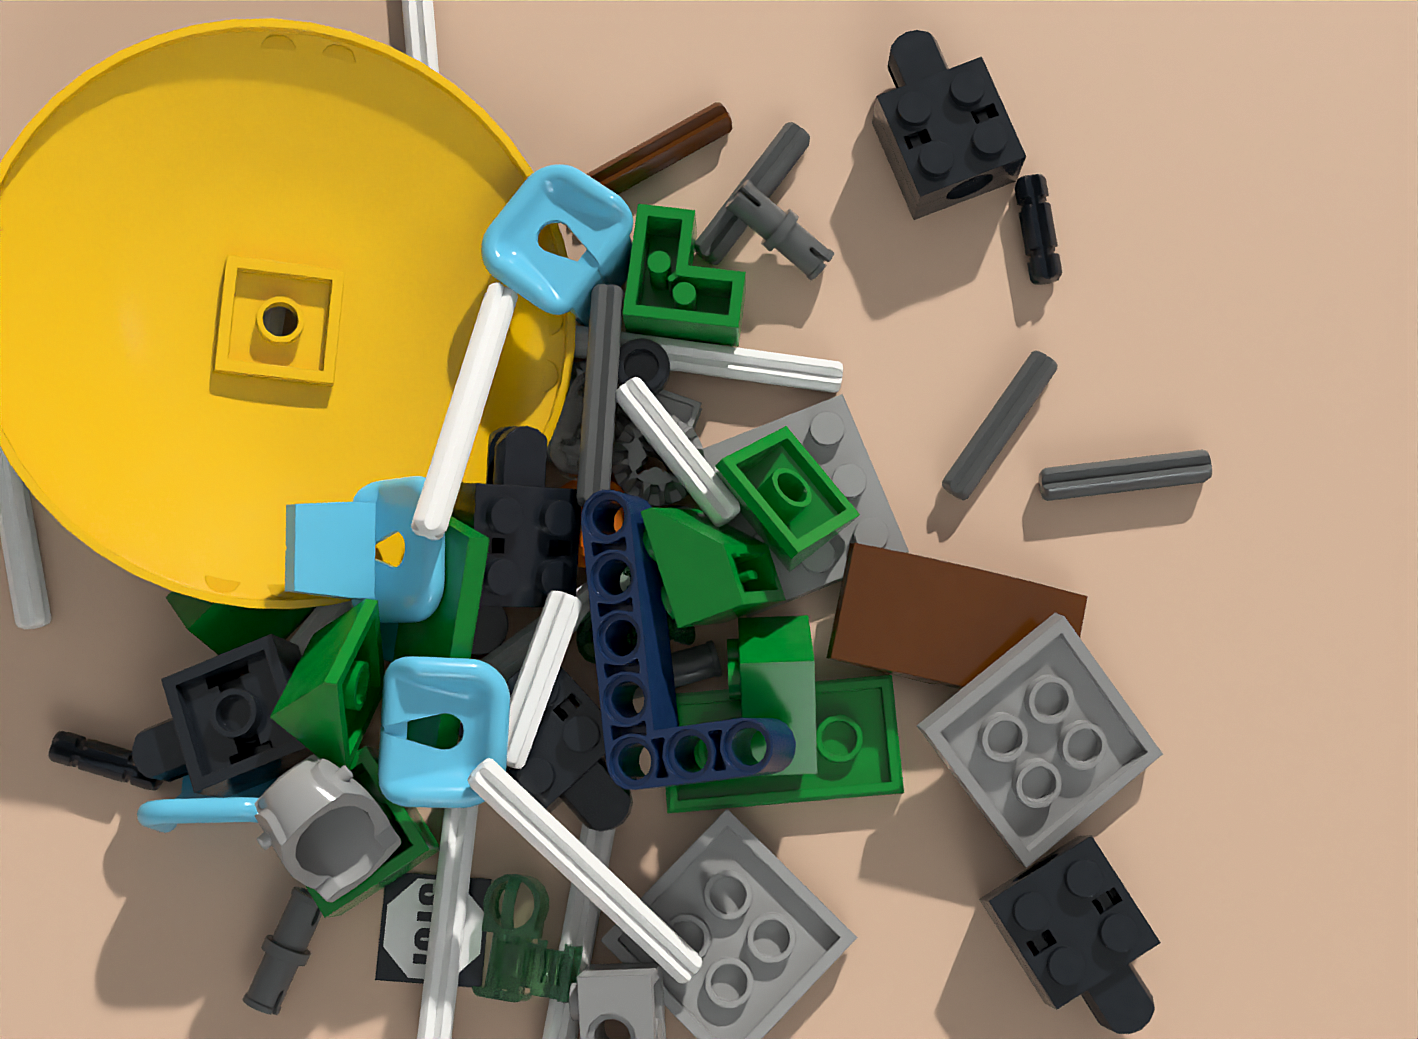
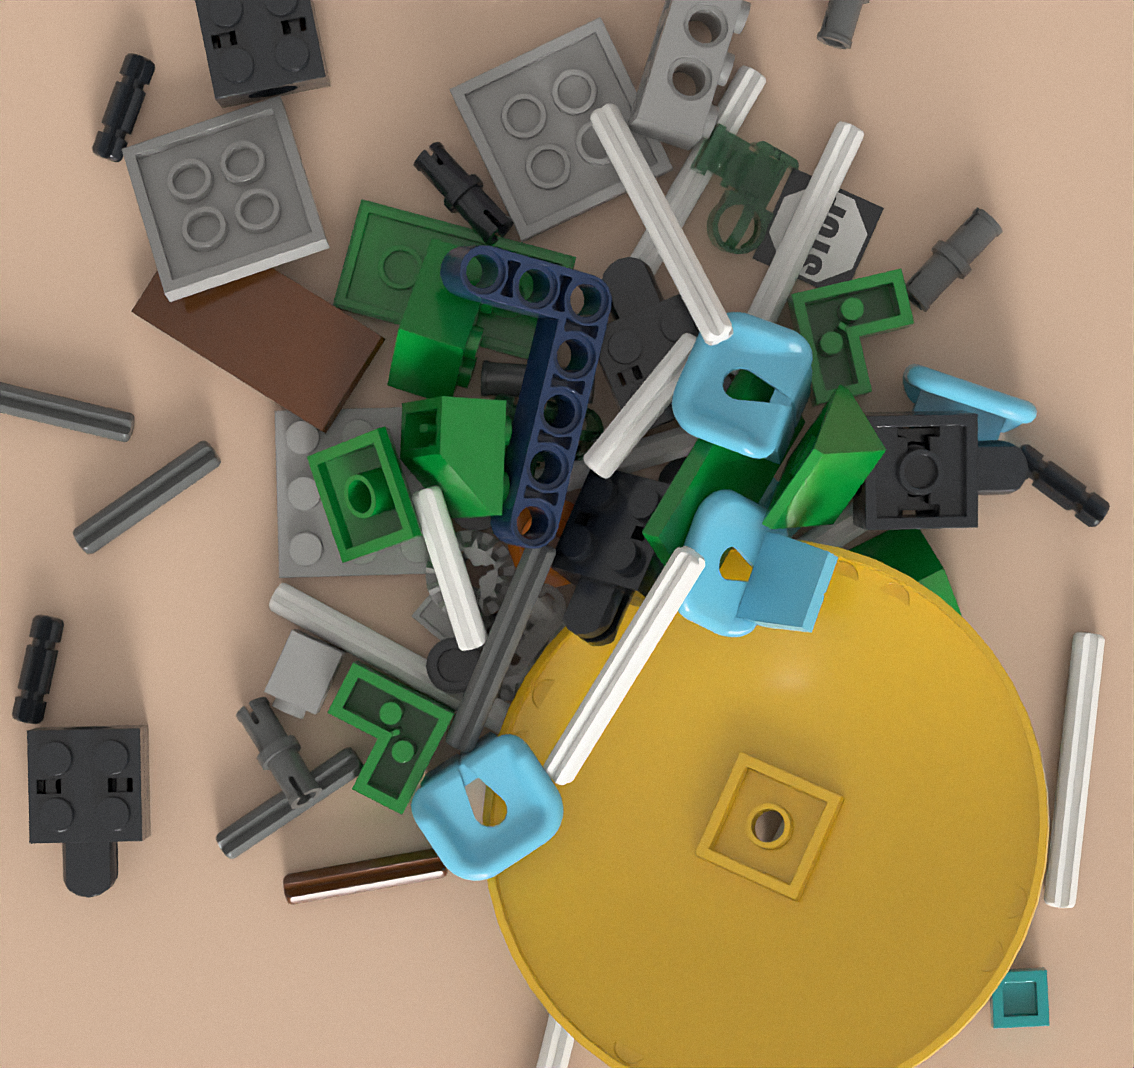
camera: 165 degrees left, 10 degrees up
(325, 827) = (871, 341): light grey helmet -> none
(783, 311) = (304, 674): none -> light grey brick
(803, 835) = (463, 193): none -> black pin
(1177, 798) = (123, 107): none -> black axle

